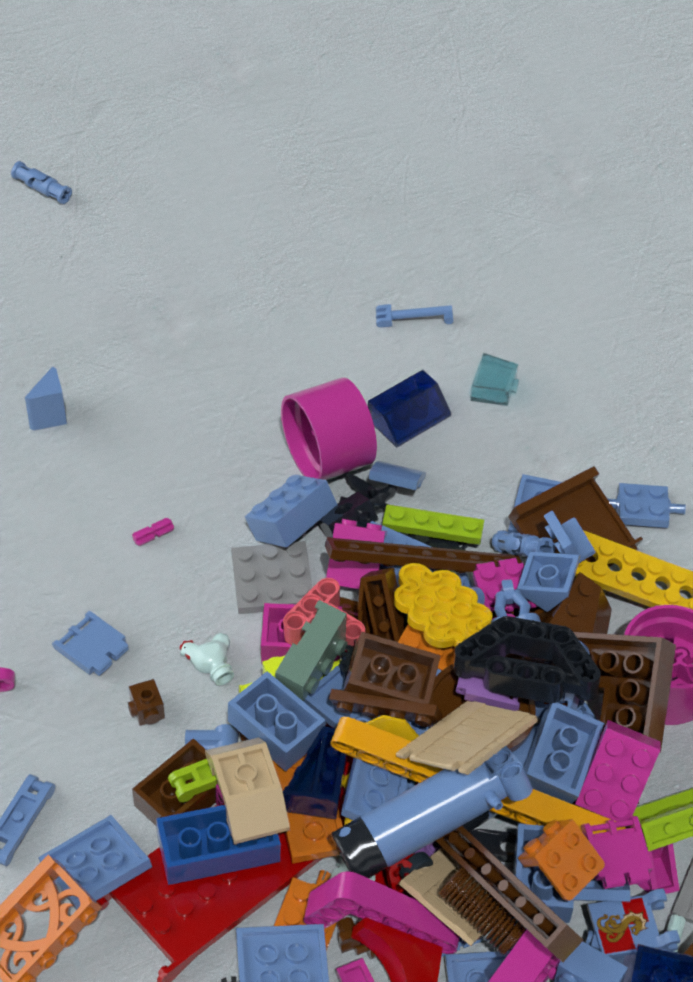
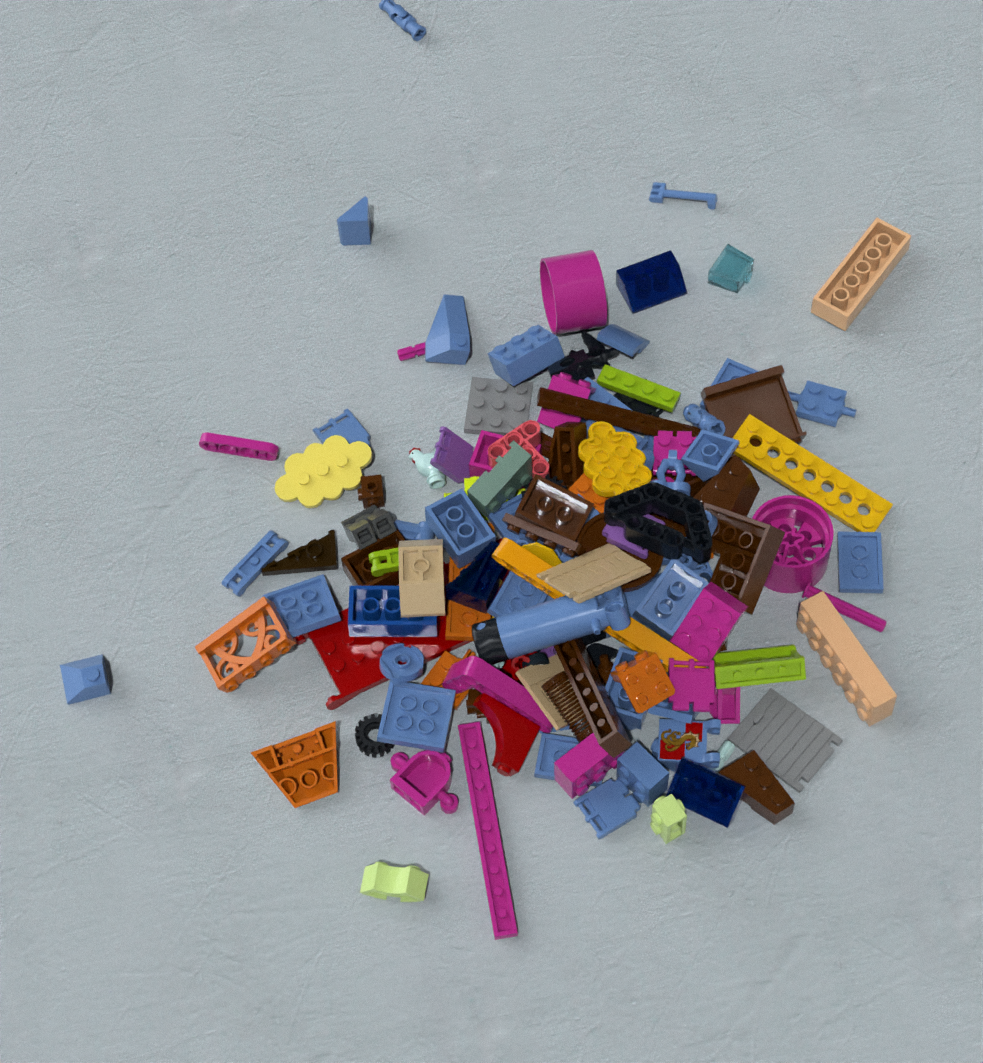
camera: 20 degrees right, 10 degrees up
(78, 690) = (323, 471): none -> light yellow plate
(90, 797) = (315, 556): none -> dark brown wing
(153, 742) = (364, 524): none -> dark grey hips
(191, 504) = (449, 333): none -> medium blue wedge
(237, 641) = (452, 455): none -> medium lavender plate
(245, 916) = (401, 673): none -> medium blue plate
(502, 854) = (604, 668): none -> reddish brown cylinder
(570, 537) = (738, 423): medium blue bracket -> none
(639, 361) = (860, 274): none -> light nougat brick

